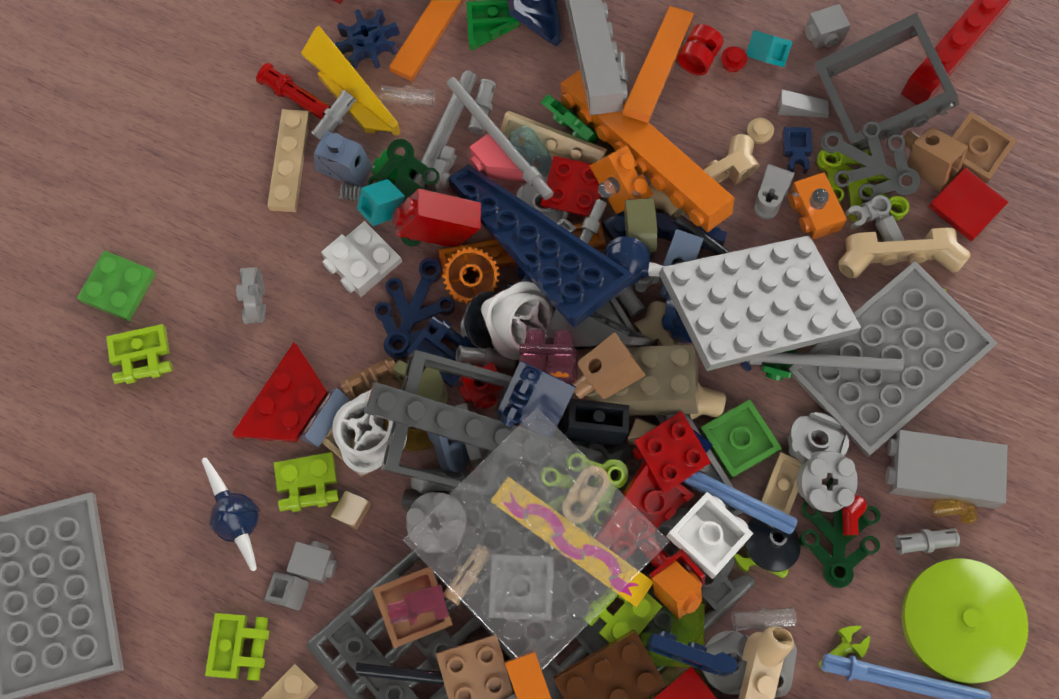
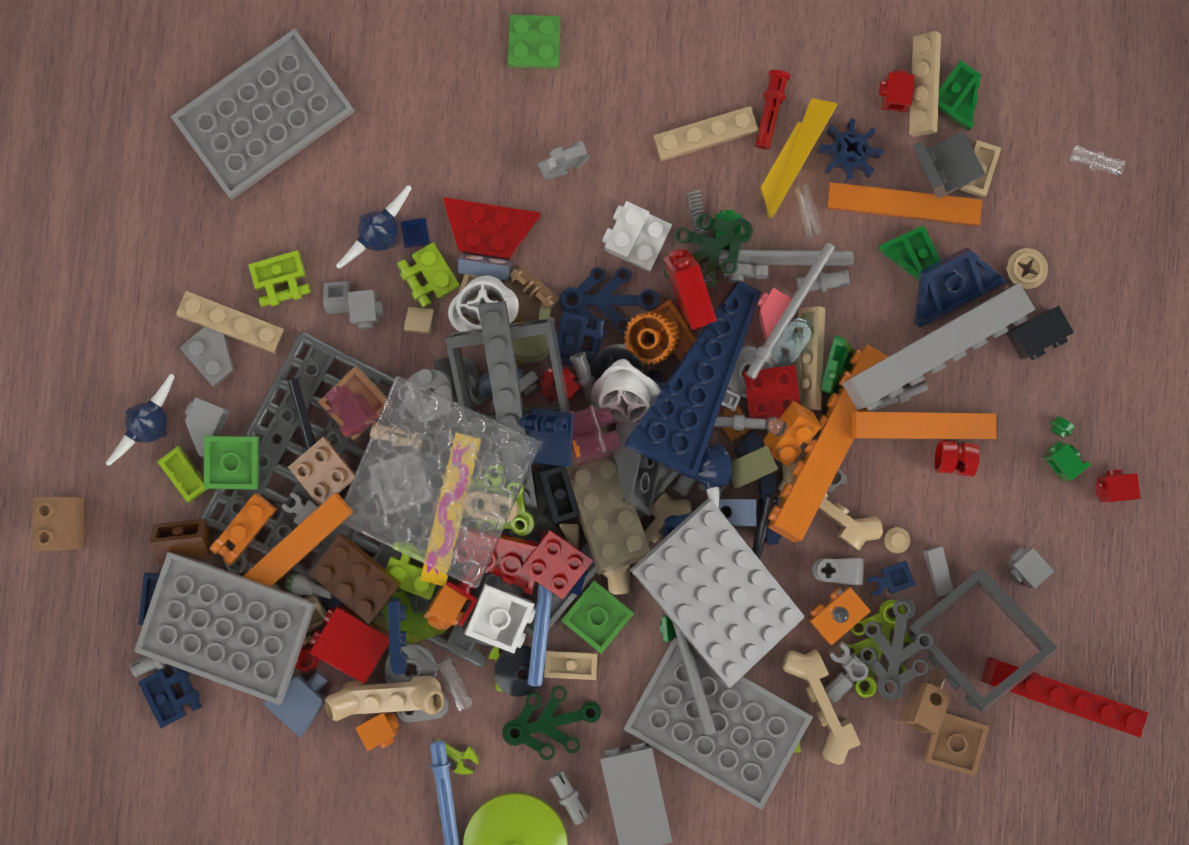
camera: 70 degrees right, 15 degrees up
(135, 346) = (488, 85): lime plate -> none
(255, 477) = (415, 233): none -> clear blue plate
(334, 115) = (760, 155): light grey pin -> none
(337, 159) = (719, 181): sand blue torso -> none
(379, 201) = (687, 232): teal panel -> none
(607, 369) = (596, 487): medium nougat torso -> none
(733, 59) = (962, 491): red plate -> none
(768, 48) = (985, 520): teal panel -> none
(807, 428) = (604, 682): light grey plate -> none
(844, 481) = (577, 713): light grey plate -> none
(851, 515) = (566, 728): red arm -> none
(955, 507) = (606, 823): clear yellow arm -> none
(968, 204) = (893, 749): red tile -> none

